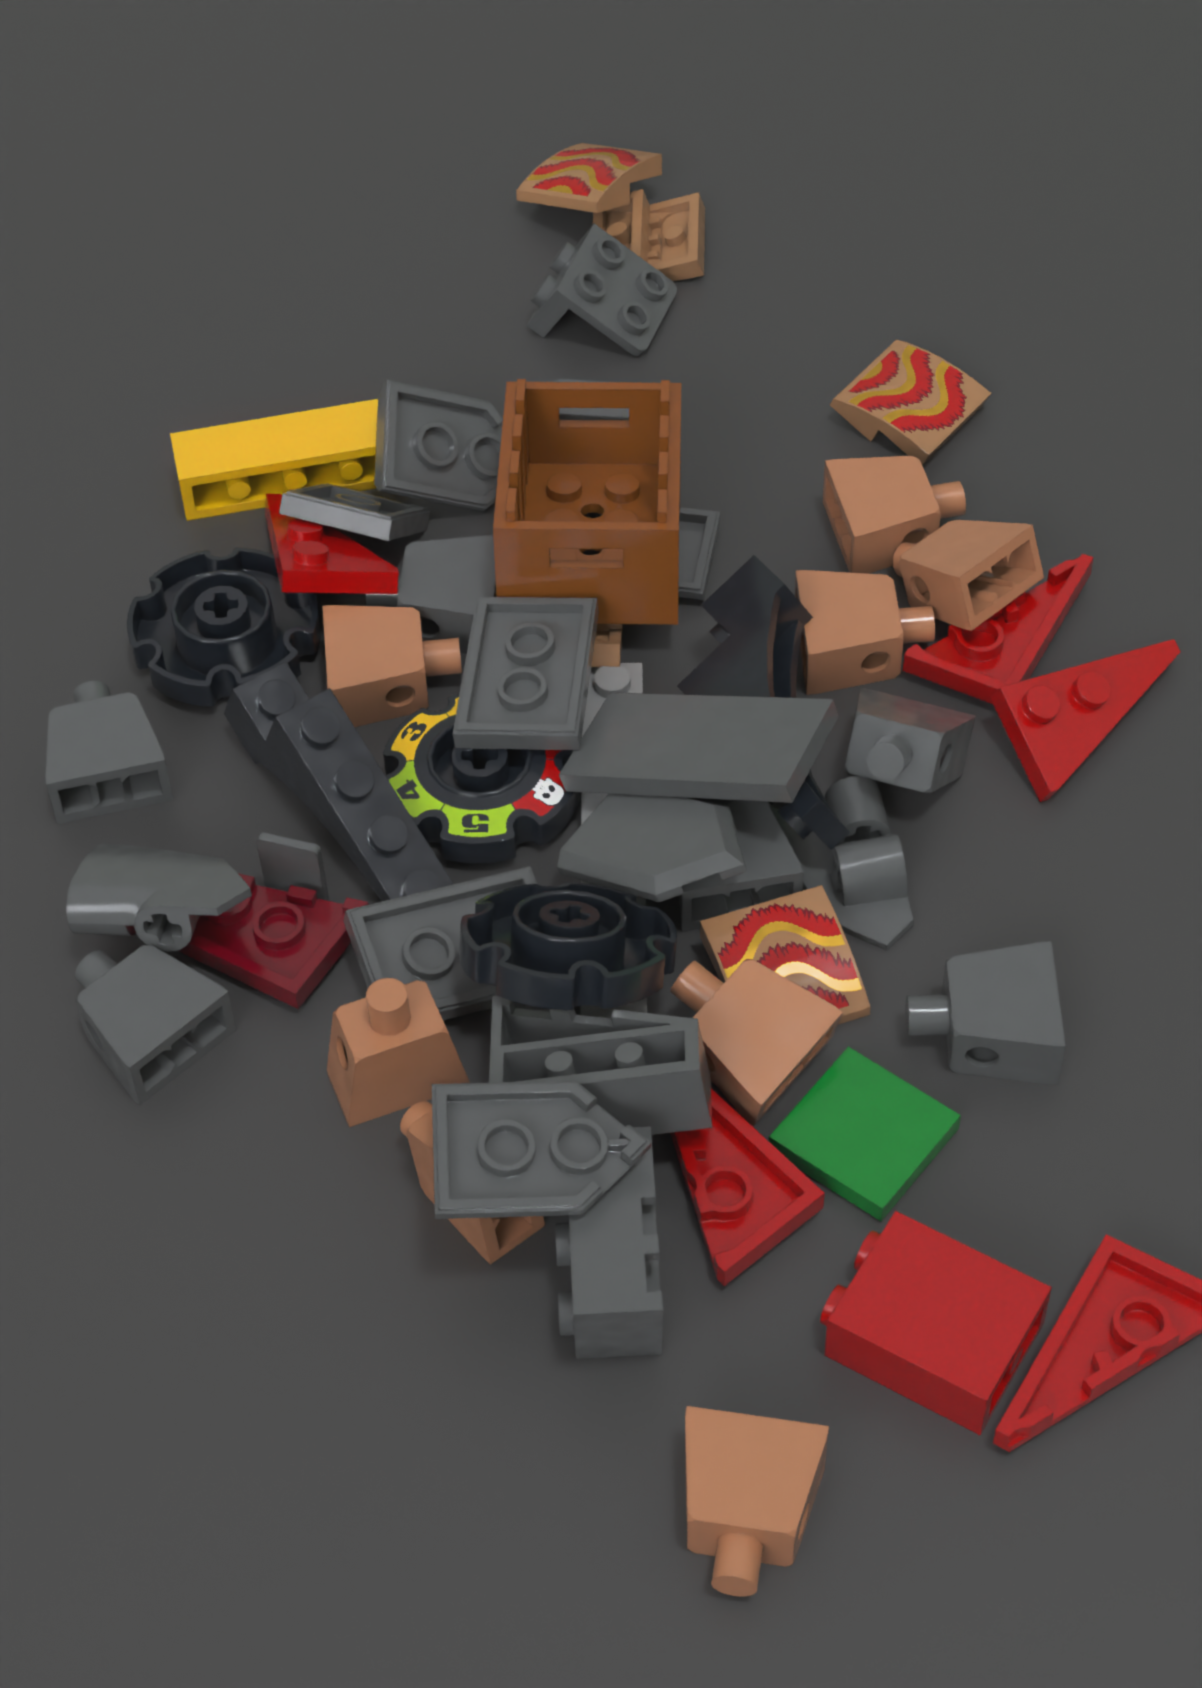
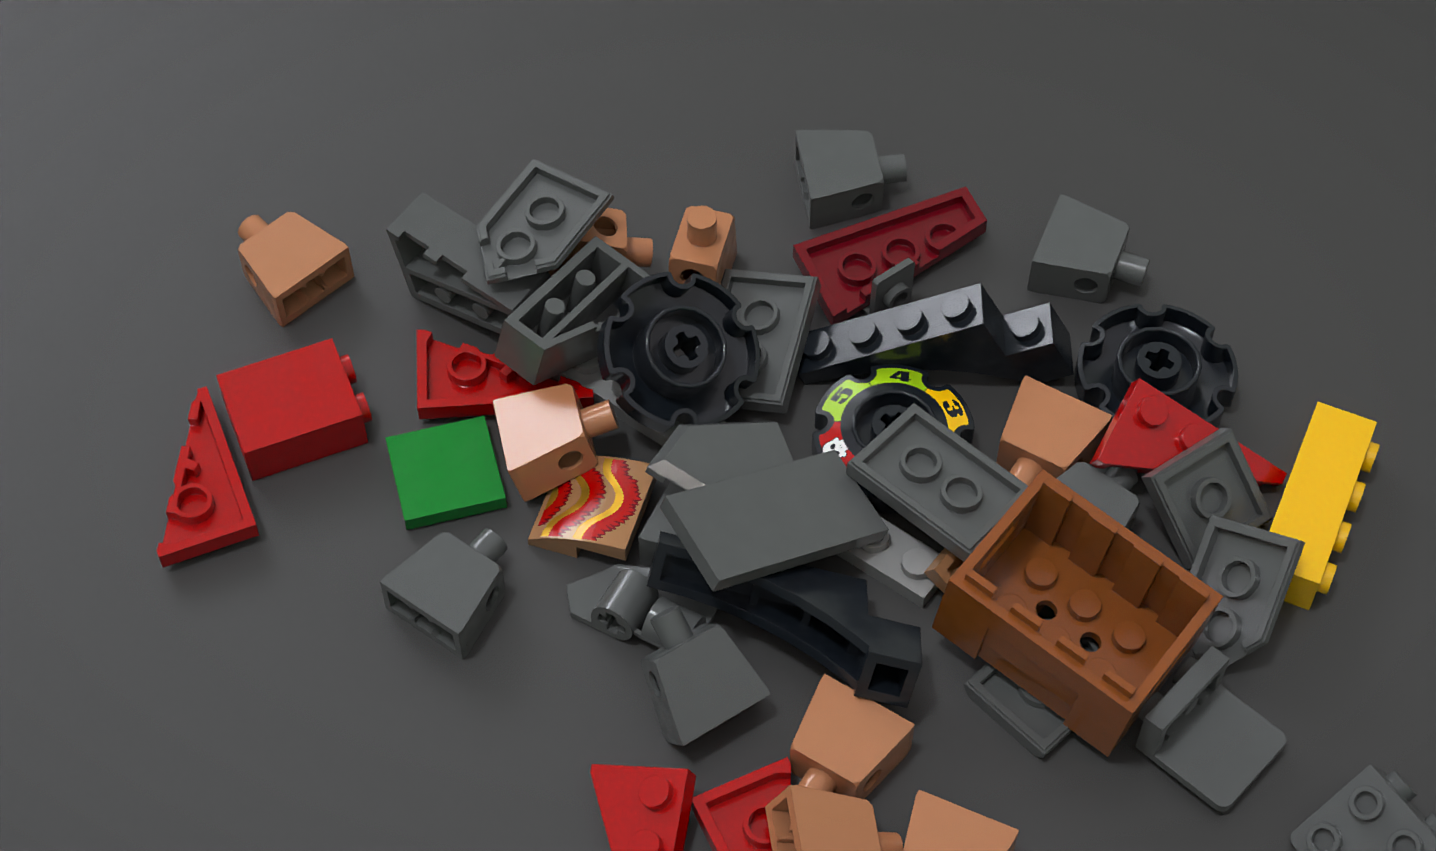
camera: 125 degrees right, 5 degrees up
(150, 893) = (922, 194): dark grey panel -> none

